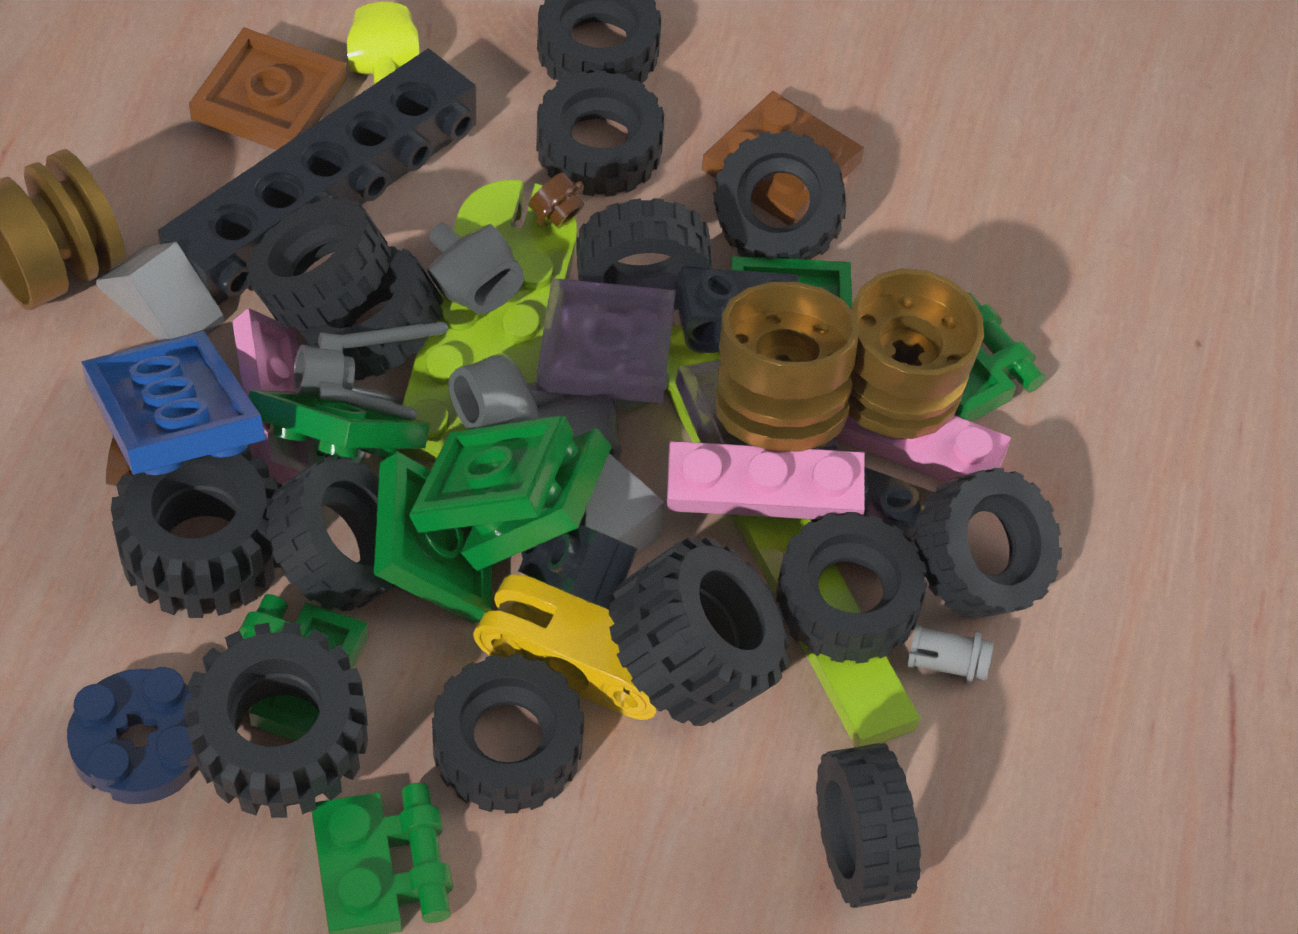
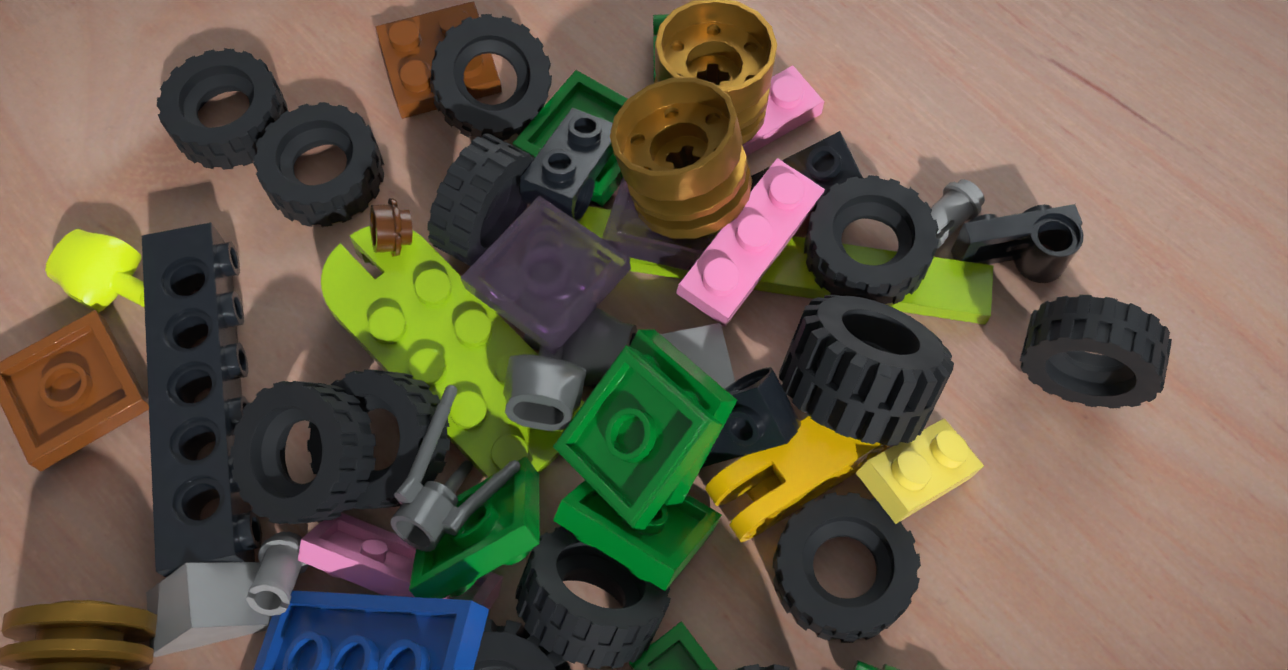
camera: 50 degrees left, 10 degrees up
(209, 314) = (277, 574): none -> light grey pin
(475, 268) = (408, 329): dark grey piece -> none
(644, 744) = (919, 471): none -> light yellow plate
(967, 722) = (1020, 238): none -> black plate
(1030, 535) = (891, 128): black tyre -> none

